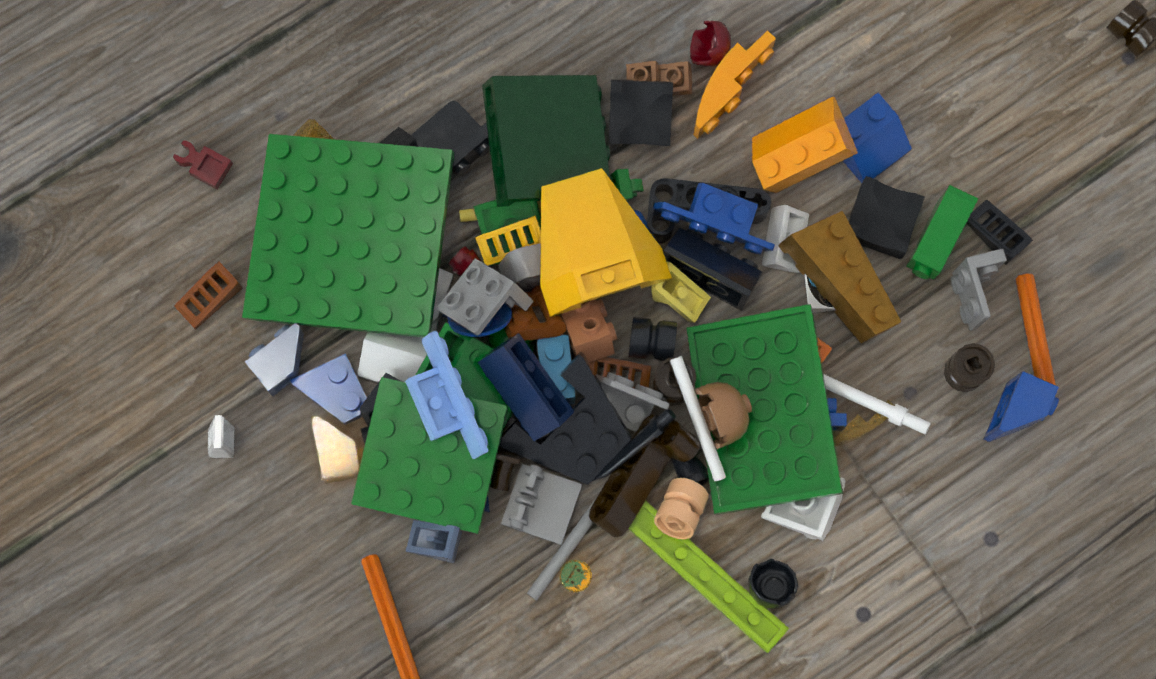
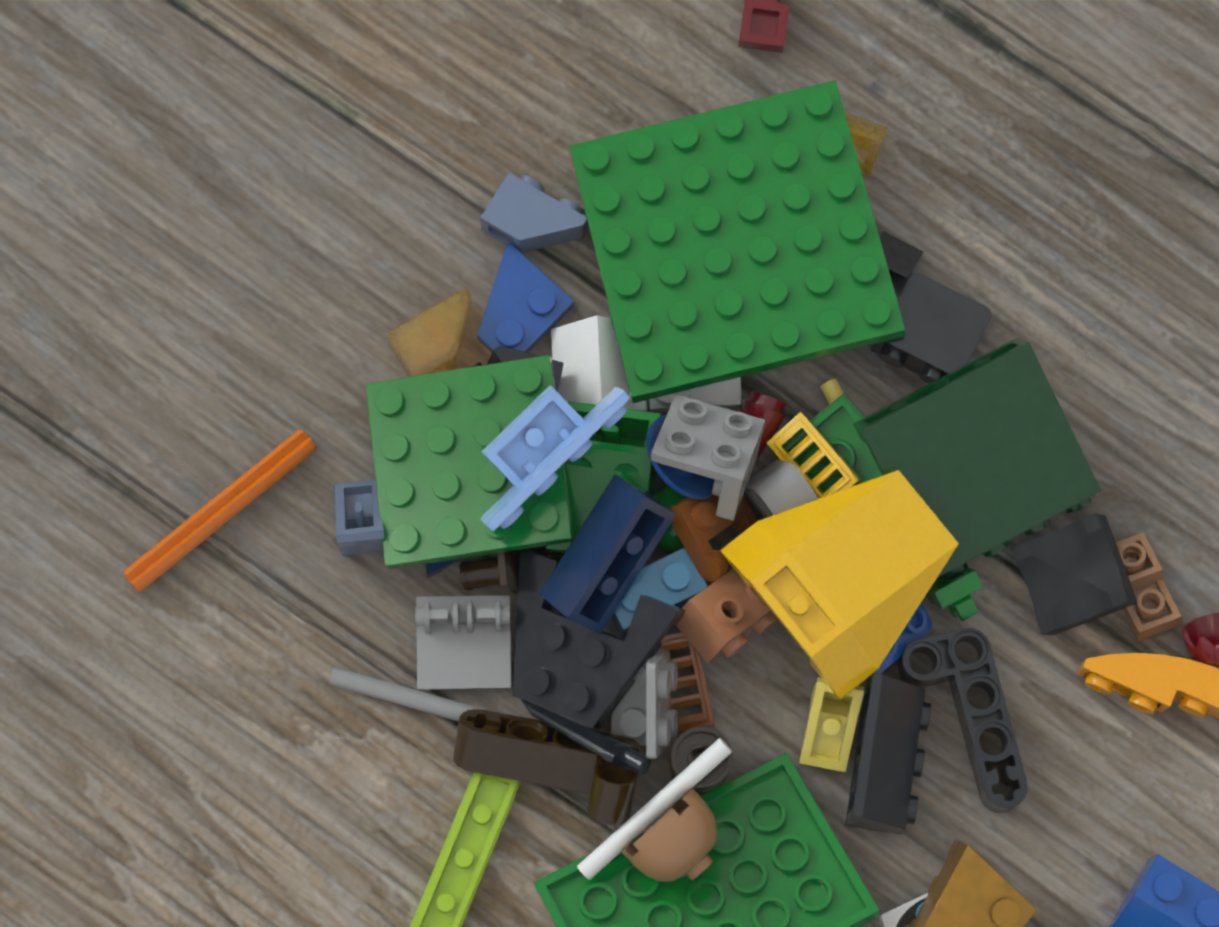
camera: 70 degrees right, 0 degrees up
(200, 287) = (607, 119): dark orange slope -> none
(220, 438) = (396, 184): white slope -> none
(575, 576) = (381, 725): clear yellow tile -> none
(652, 339) = (750, 712): black wheel -> none
(681, 508) = (522, 833): light nougat wheel -> none
(692, 470) = (580, 833): black cone -> none
(719, 213) = (965, 735): blue bracket -> none
(782, 223) = (994, 840): white slope -> none
(802, 146) = (1114, 821): light orange slope -> none

